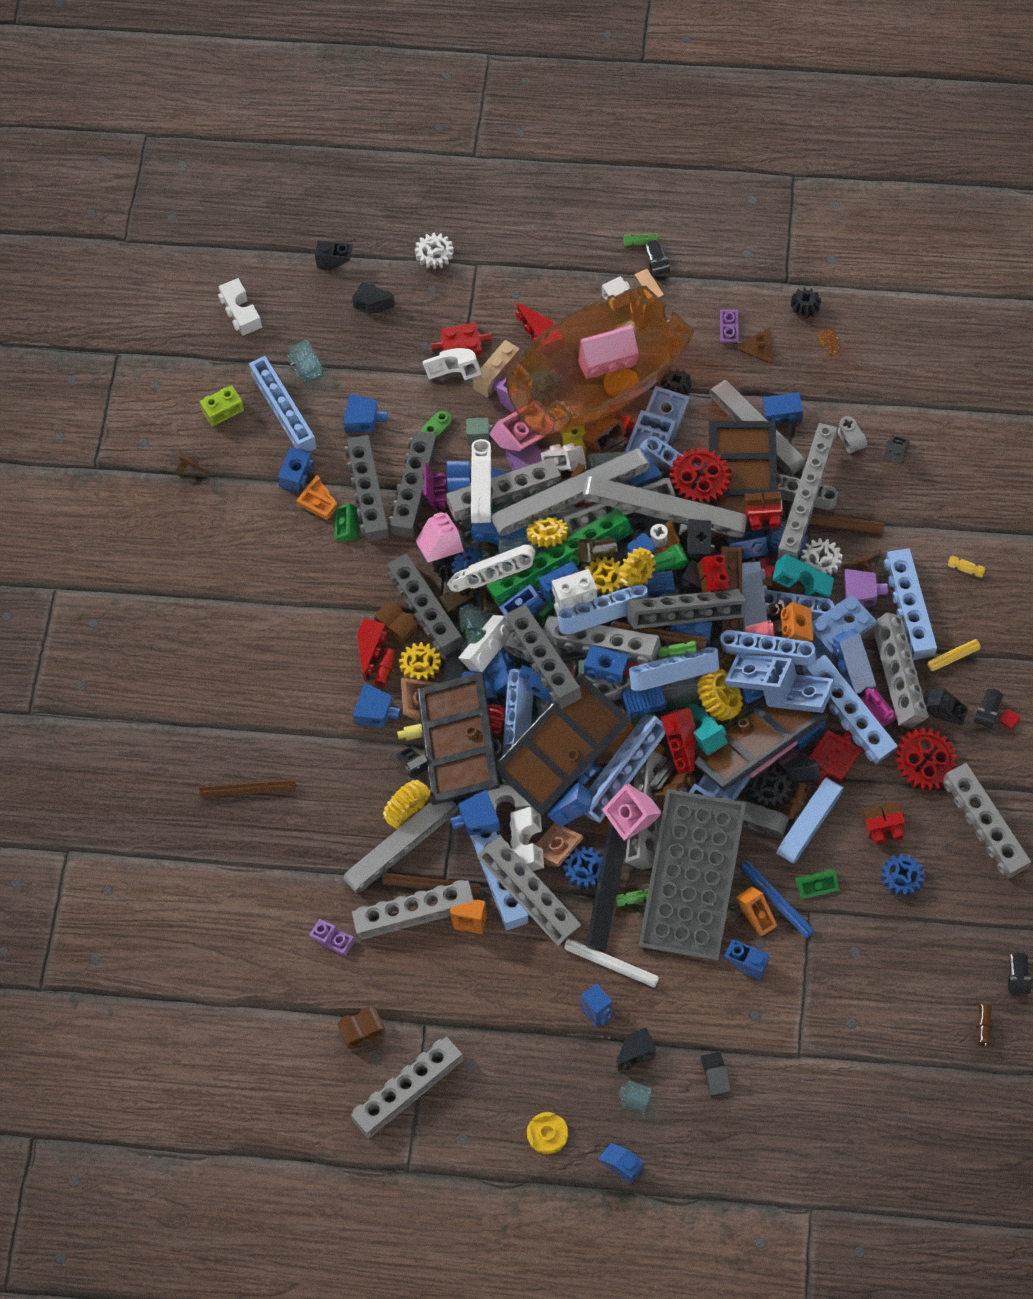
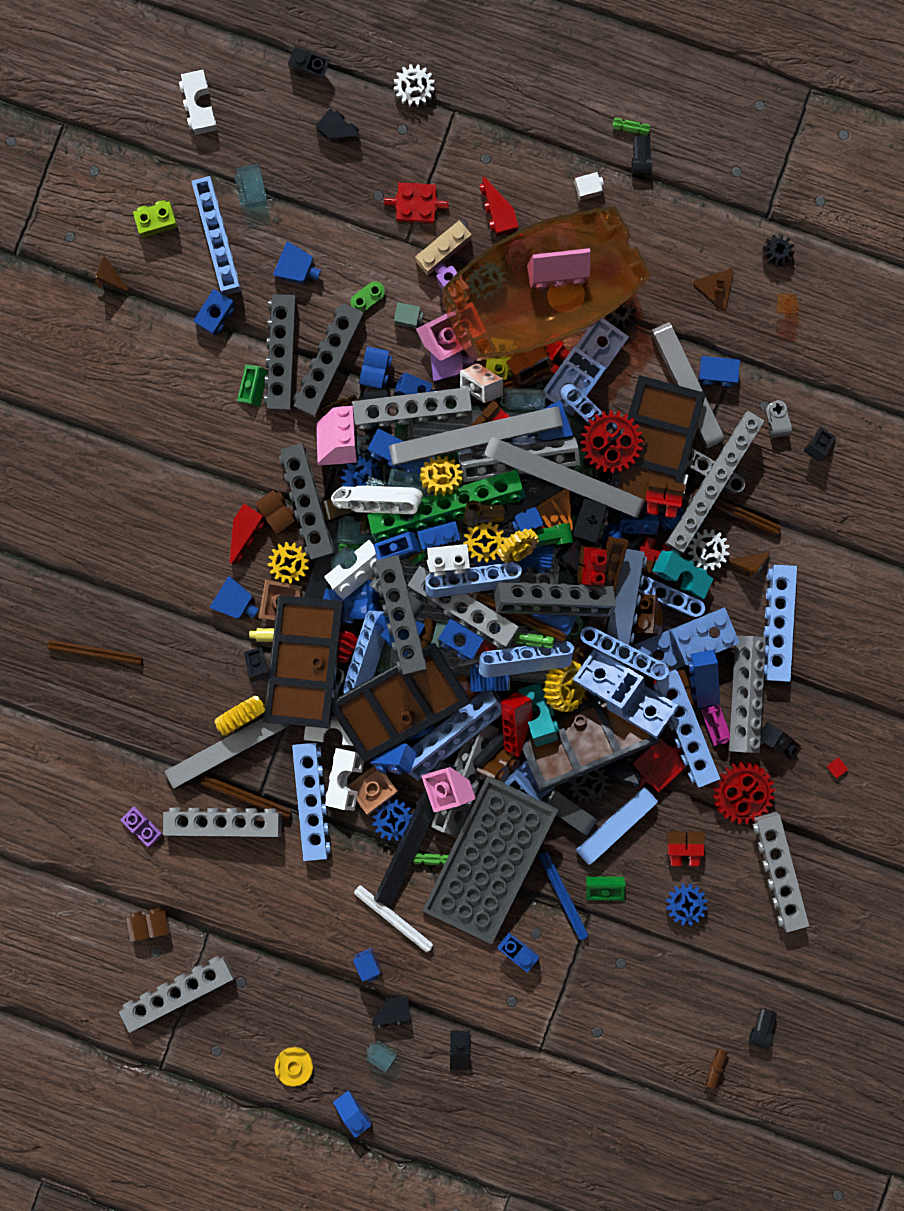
camera: 10 degrees right, 25 degrees up
(317, 499) = (229, 352): orange wing -> none
(385, 667) = (253, 558): red pin -> none
(434, 488) = (342, 378): magenta hinge -> none
(453, 360) = (402, 229): white arch -> none
(473, 915) = (272, 847): orange tile -> none
(477, 815) = (302, 749): blue torso -> none
(481, 482) = (389, 400): white piece -> none
(529, 890) = (333, 848): light grey brick -> none
(646, 278) = (625, 182): light nougat sticker -> none
(657, 530) = (556, 505): white bush -> none
(729, 326) = (692, 256): medium lavender slope -> none
(756, 910) = (540, 904): orange slope -> none
(762, 628) = (623, 631): coral cone -> none
(797, 622) = (660, 630): orange brick -> none
(798, 802) = (610, 804): reddish brown pin -> none
(863, 587) = (737, 594): medium lavender torso -> none
(953, 655) = (805, 687): yellow axle -> none
(966, 566) = (847, 594): yellow axle -> none
(988, 710) = (817, 758): black piece -> none

